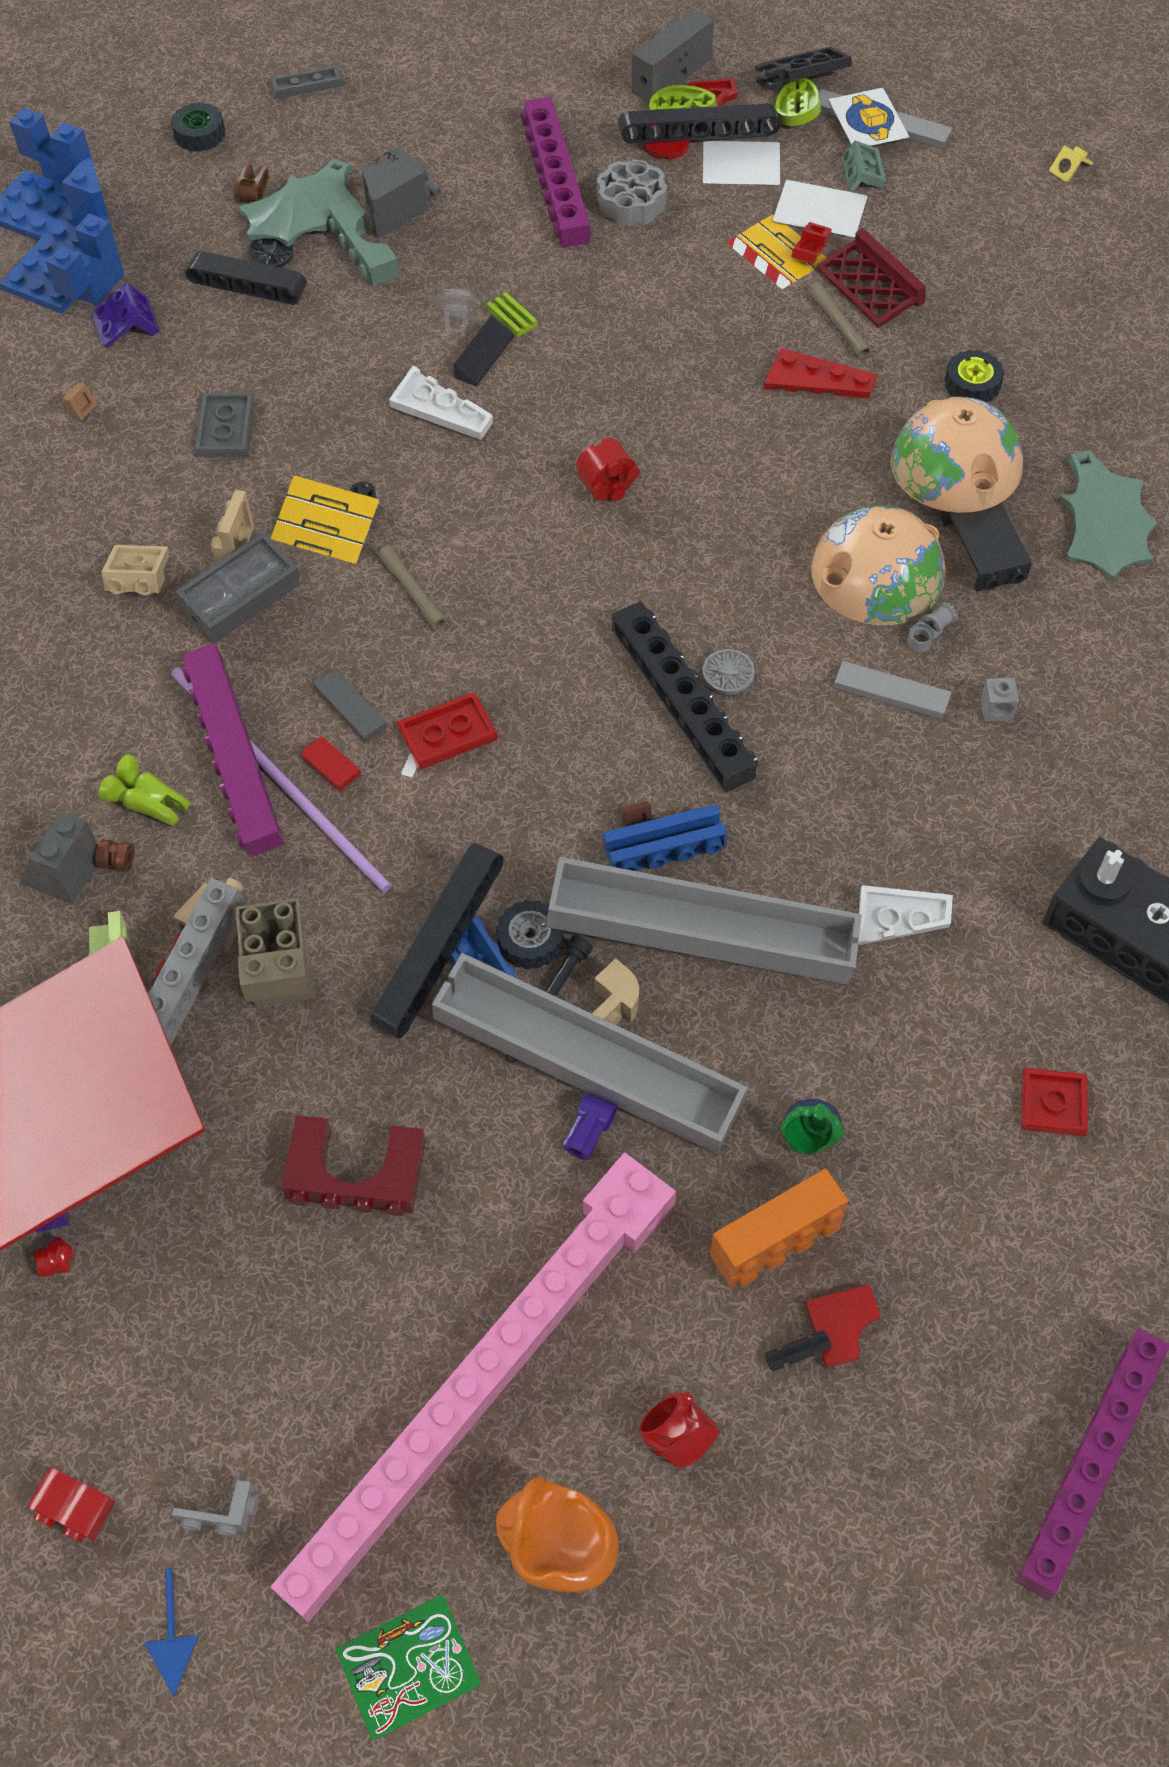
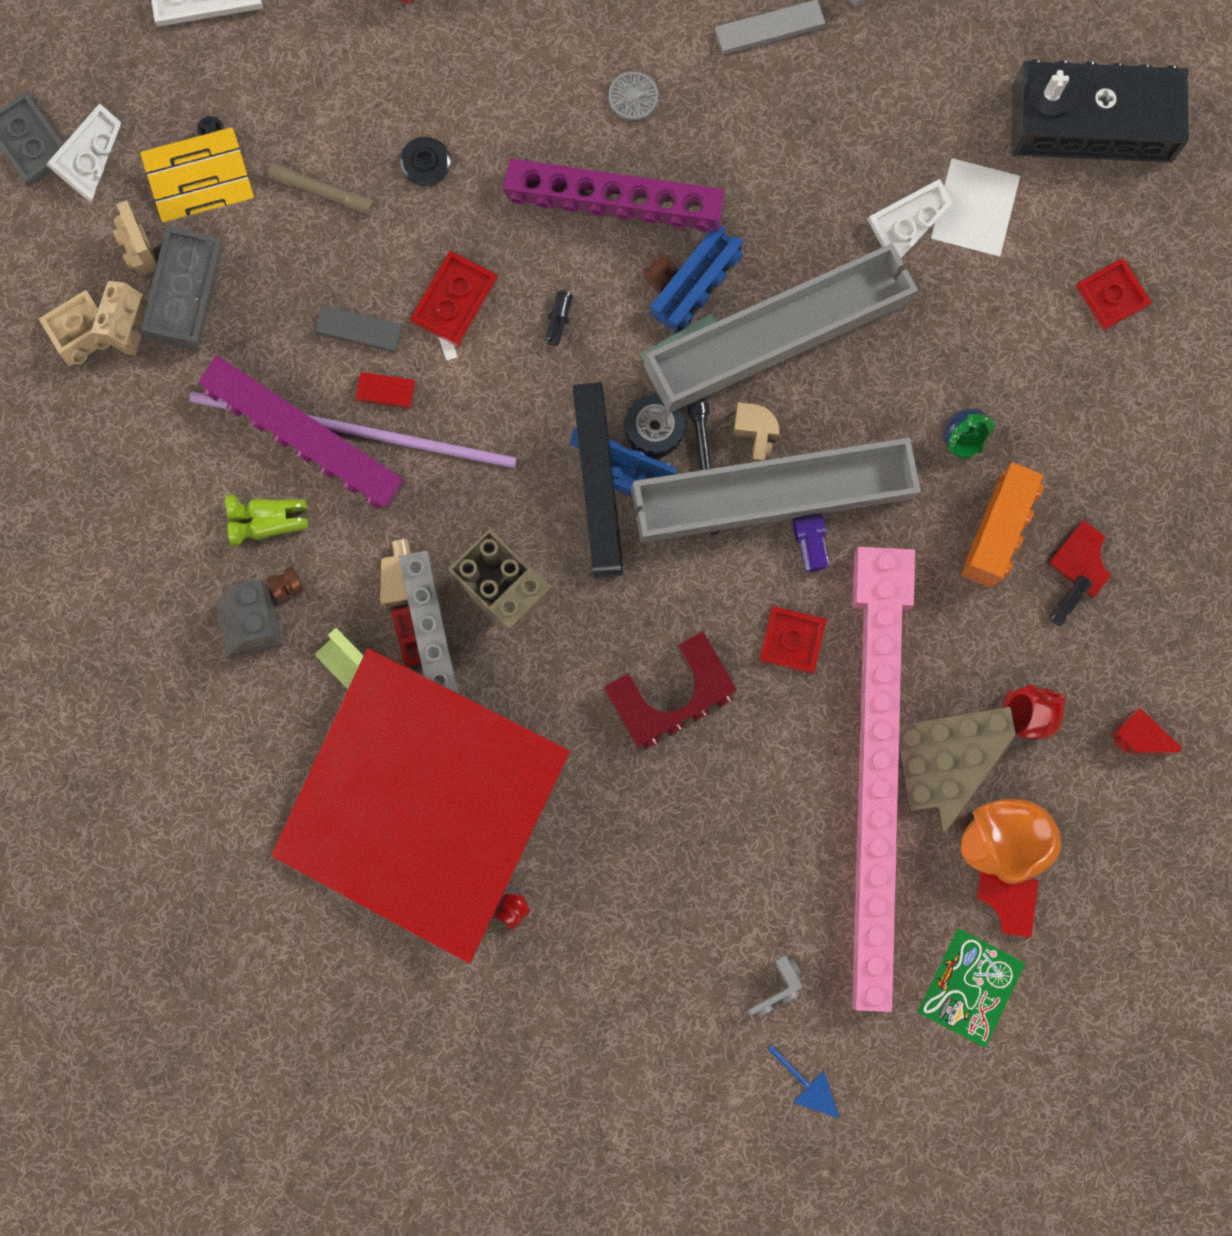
camera: 40 degrees left, 20 degrees up
(70, 1504) = (673, 1059): red brick -> none
(168, 572) = (120, 317): none -> tan plate
(257, 455) = (86, 152): none -> white wing
(503, 1201) = (792, 640): none -> red tile
(512, 617) = (425, 161): none -> black wheel
(515, 1607) = (1011, 902): none -> red tile
(519, 798) = (558, 317): none -> black axle
(562, 1416) = (951, 758): none -> dark tan wing
(647, 731) = (523, 173): none -> magenta brick
(684, 696) = (599, 143): black brick -> none
(773, 1538) = (1143, 736): none -> red slope
(975, 946) = (979, 207): none -> white sticker

